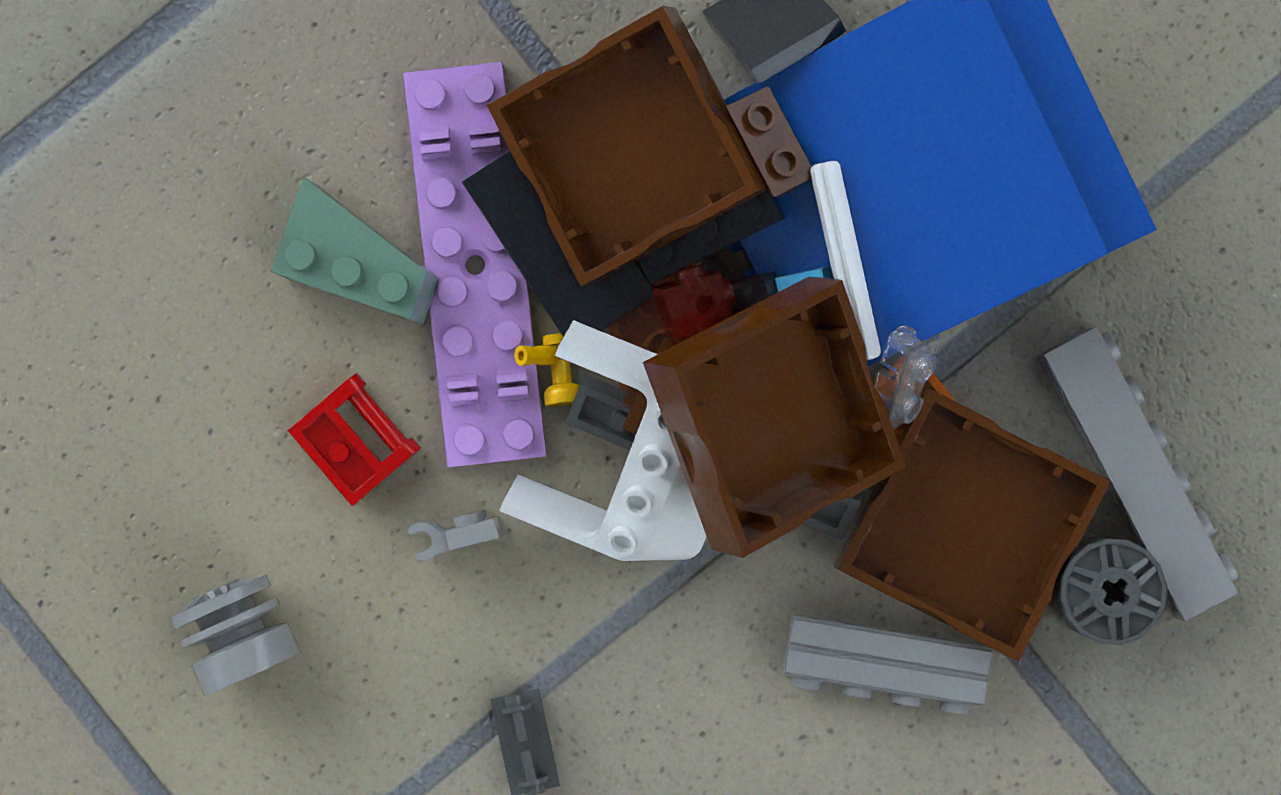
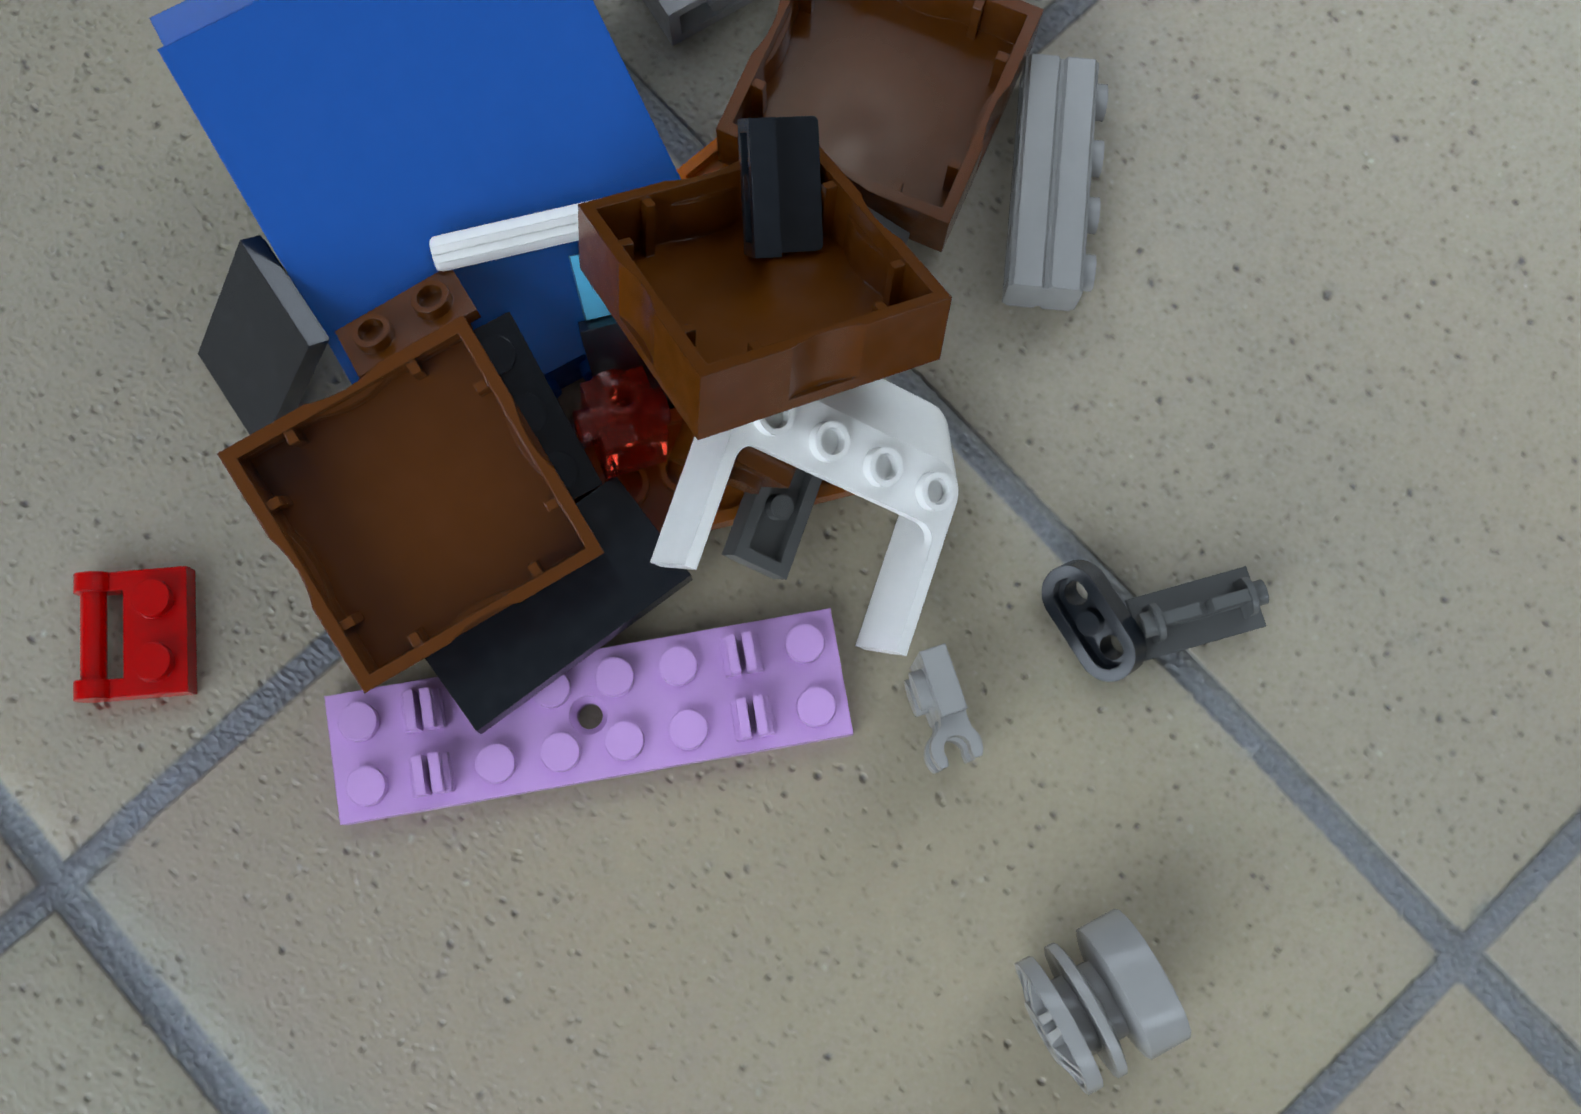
camera: 95 degrees left, 10 degrees down
(341, 451) = (841, 875): red plate -> none
(349, 258) = (585, 878): sand green wedge -> none
(522, 660) = (1092, 621): none -> black plate
(563, 390) = (699, 604): yellow piece -> none
(859, 435) = (780, 185): none -> black panel
(913, 365) = (681, 142): clear hinge -> none

